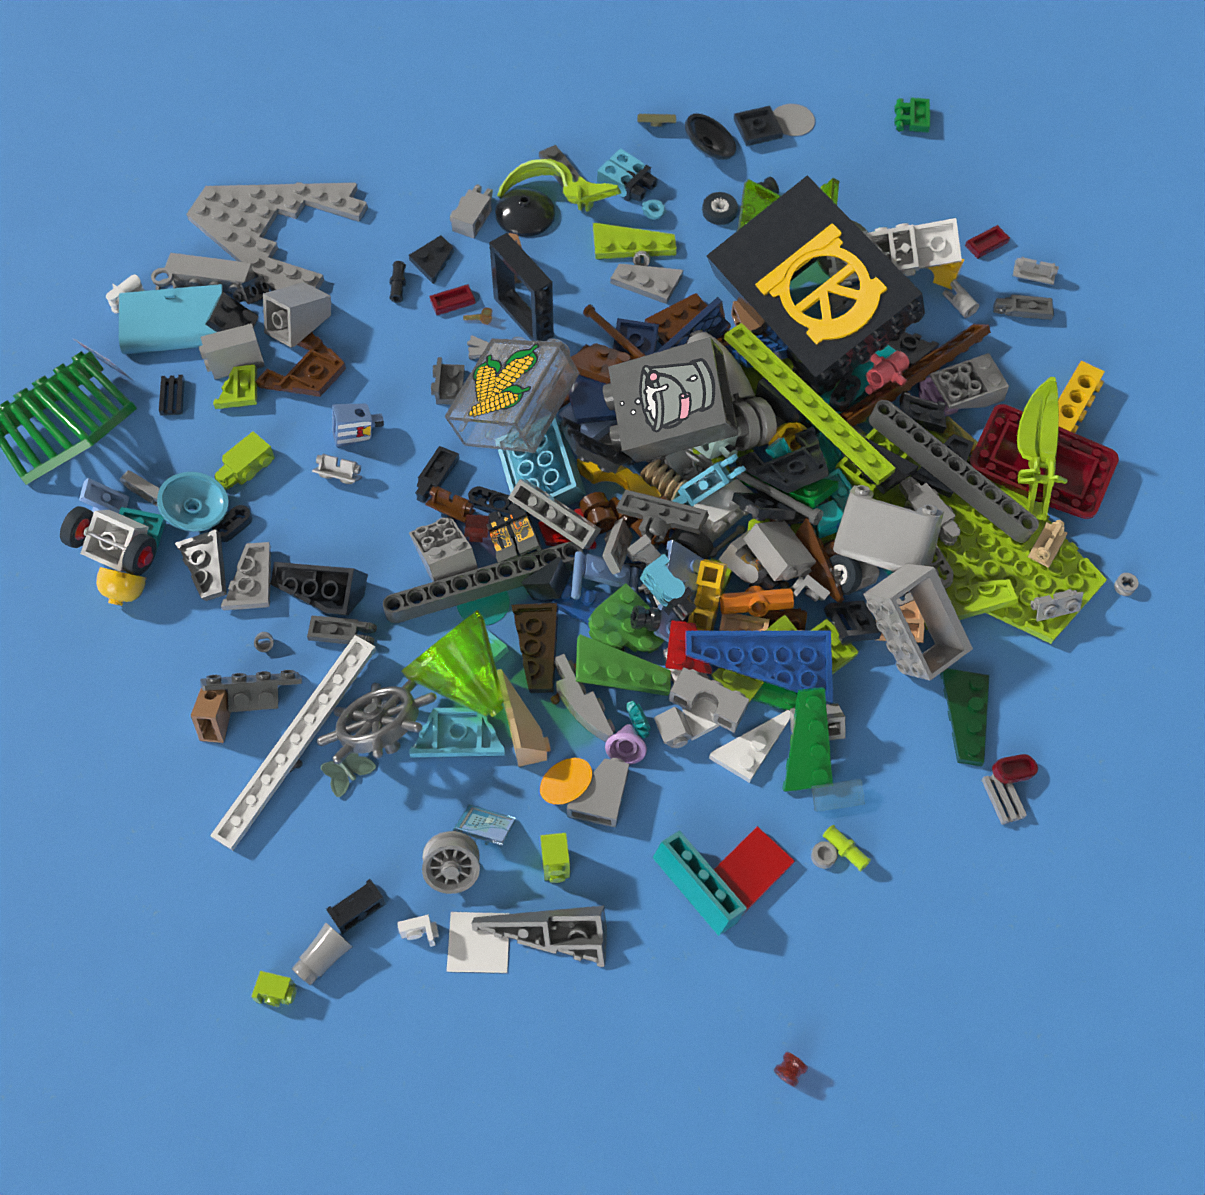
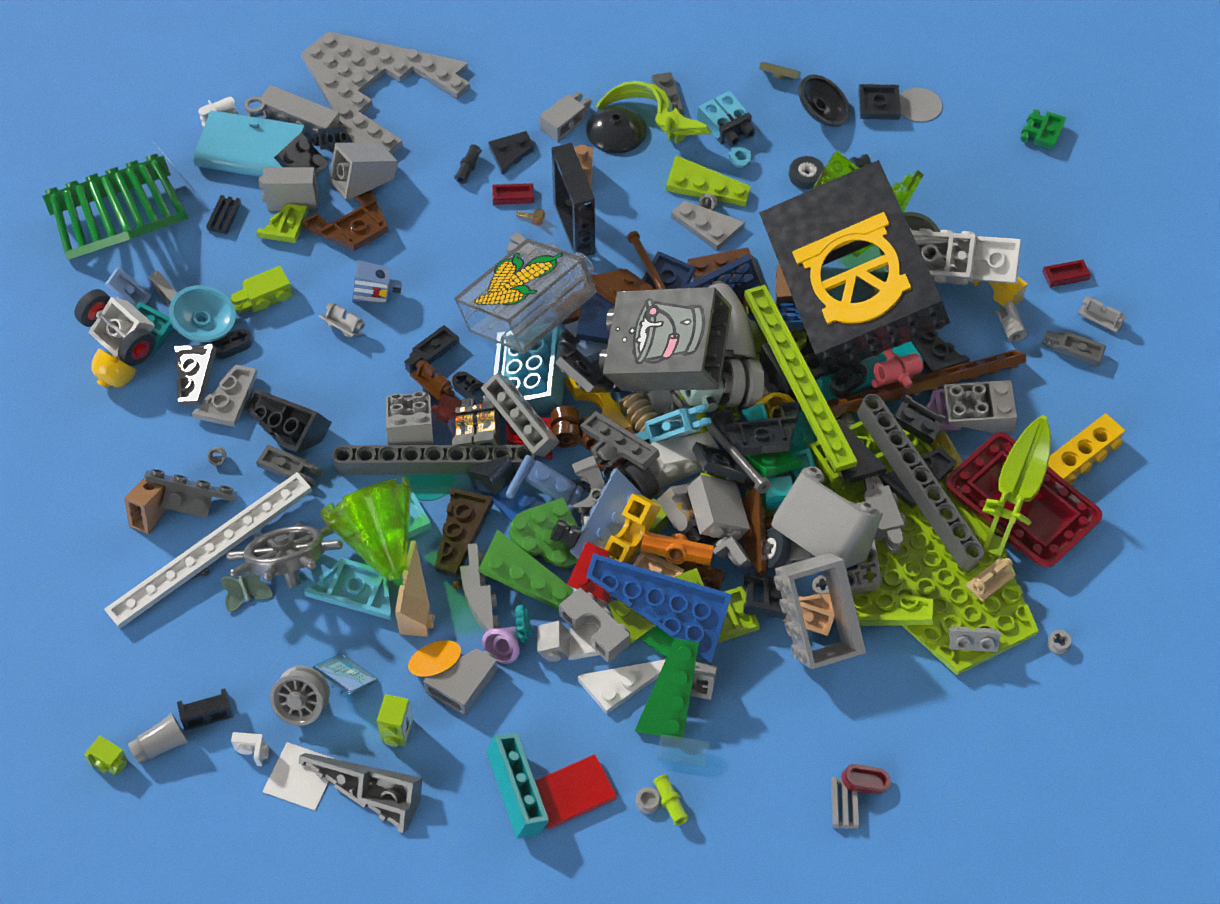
camera: 20 degrees right, 5 degrees down
(448, 381) = (474, 266): dark grey bracket -> none
(616, 546) = (561, 465): light grey hinge -> none
(668, 589) = (591, 510): medium azure hips -> none
(967, 711) = (845, 710): dark green wing -> none

